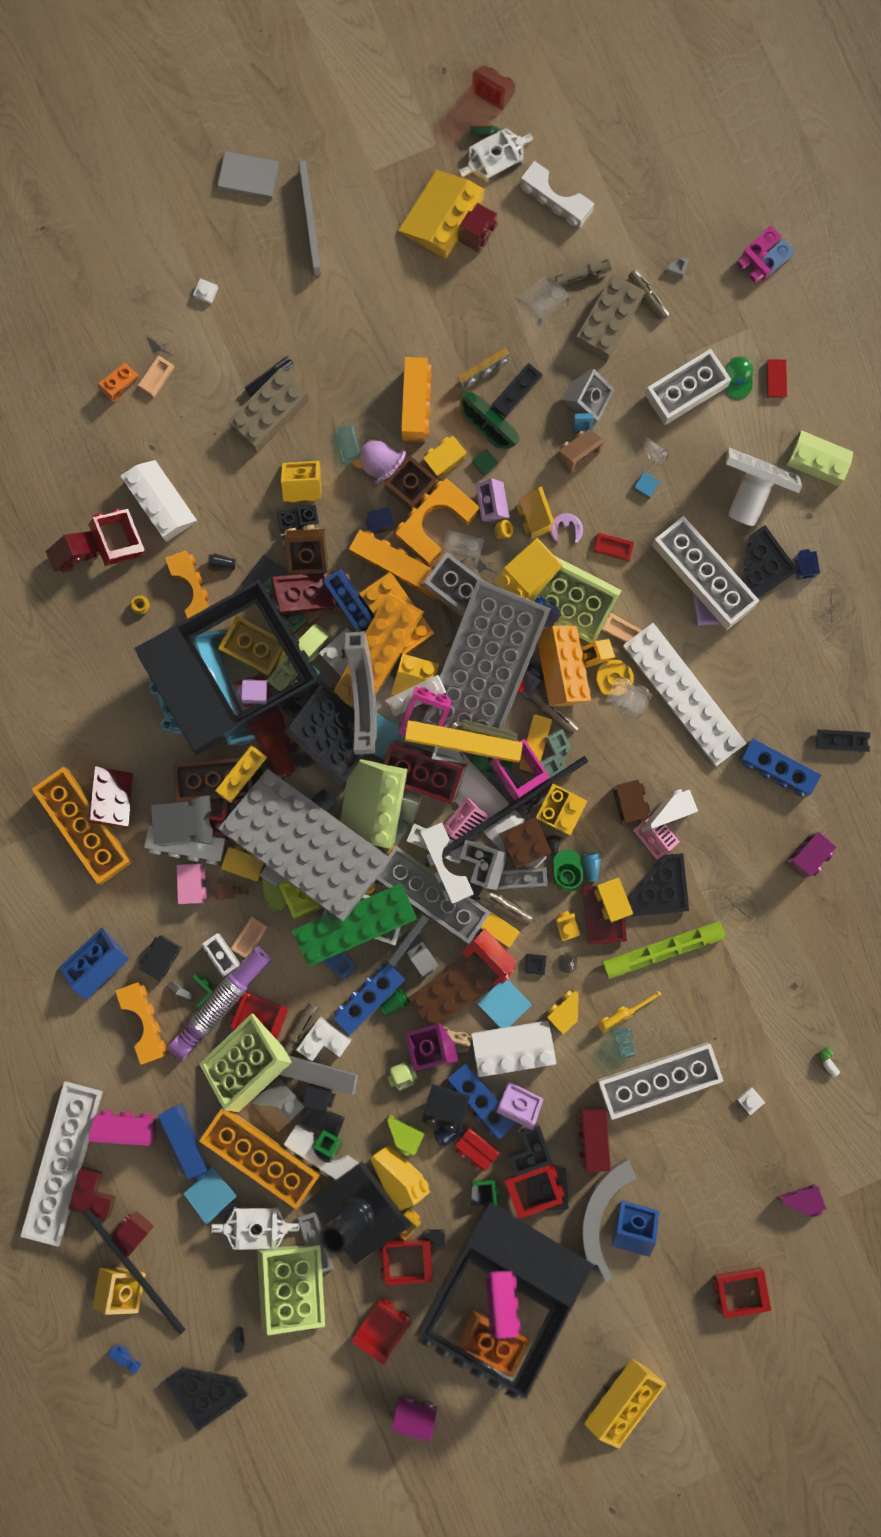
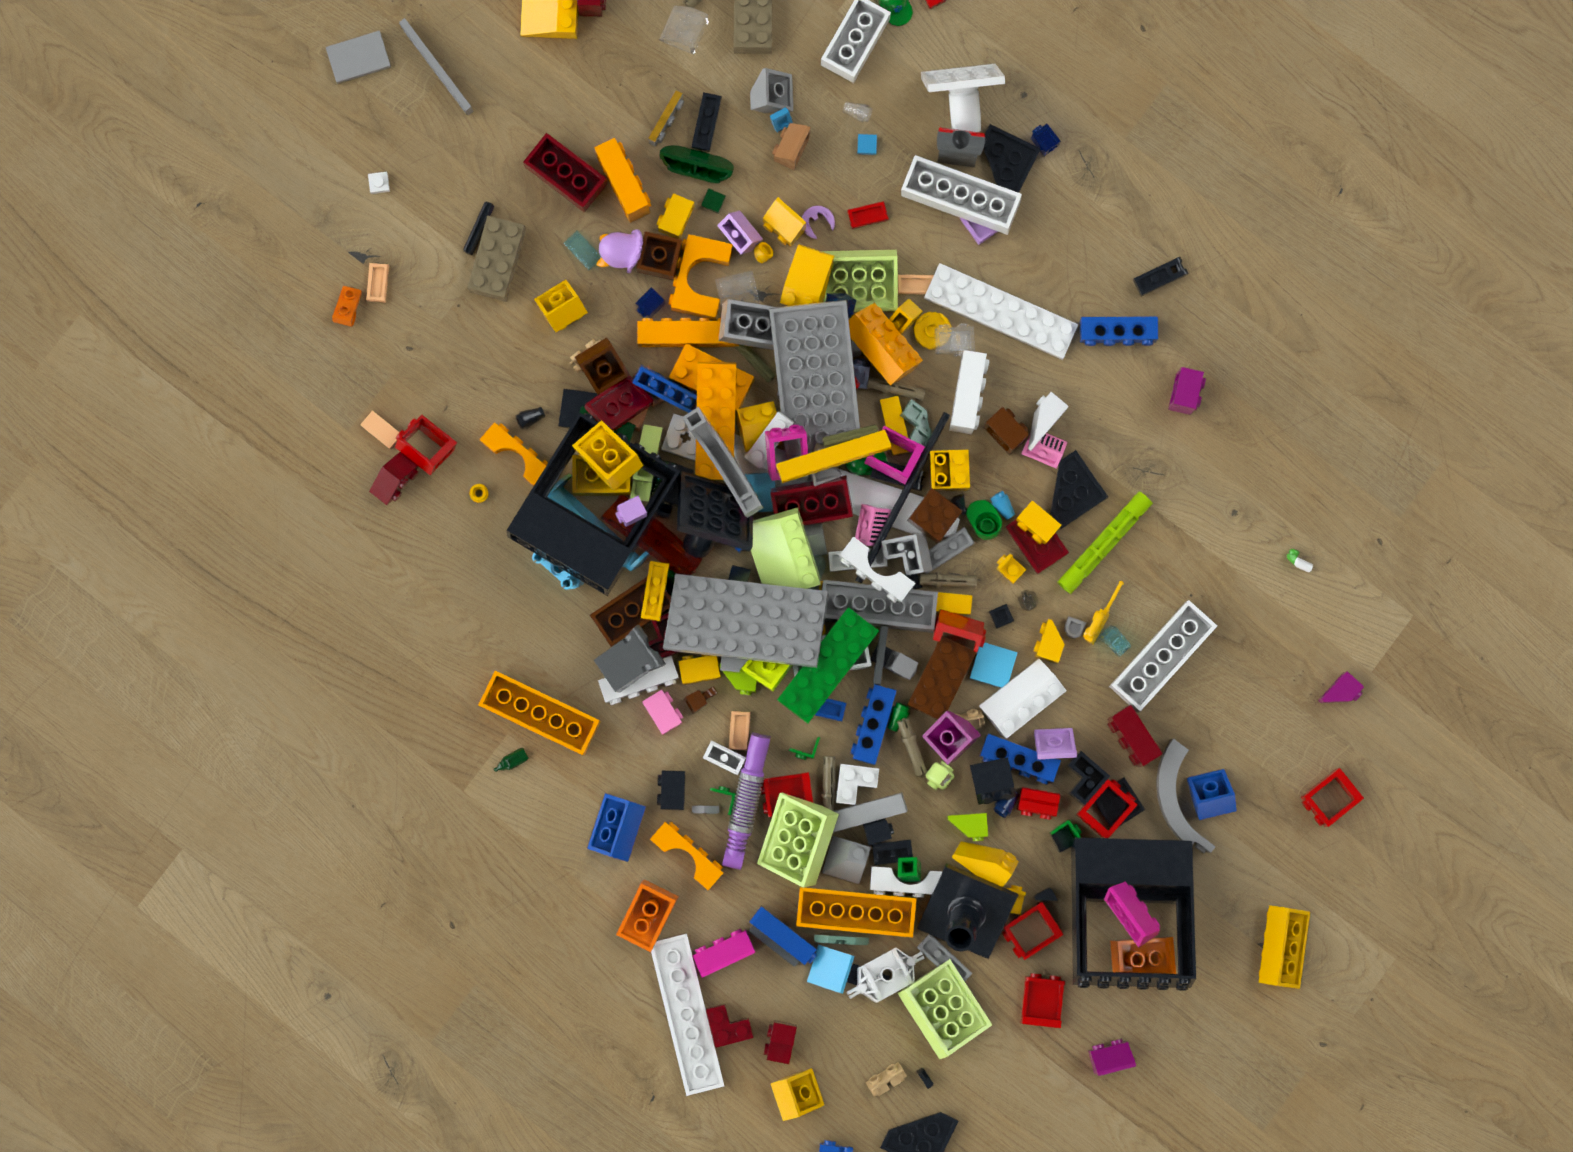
camera: 30 degrees left, 0 degrees up
(38, 853) = (512, 760): none -> dark green piece
(76, 1056) = (647, 915): none -> orange slope
(86, 502) = (380, 429): none -> light nougat tile
(110, 797) = (550, 674): plate -> none
(134, 1271) = (802, 1068): black piece -> none
(159, 499) = (443, 391): white slope -> none
(196, 1320) = (878, 1083): none -> tan hinge
(226, 1170) = (834, 939): none -> sand green tile
(261, 631) = (608, 455): none -> yellow slope
(292, 991) = (802, 755): none -> green bracket
(297, 517) = (575, 340): black slope -> none
(369, 367) = (565, 172): none -> dark red brick
(392, 1027) = (909, 739): none -> dark tan pin
(594, 1010) = (1074, 627): none -> light grey tile
(615, 749) = (968, 389): none -> white brick
(726, 529) = (959, 146): none -> dark grey piece
(750, 1101) = (1250, 631): white plate -> none
(820, 458) = (1006, 38): yellowish green slope -> none

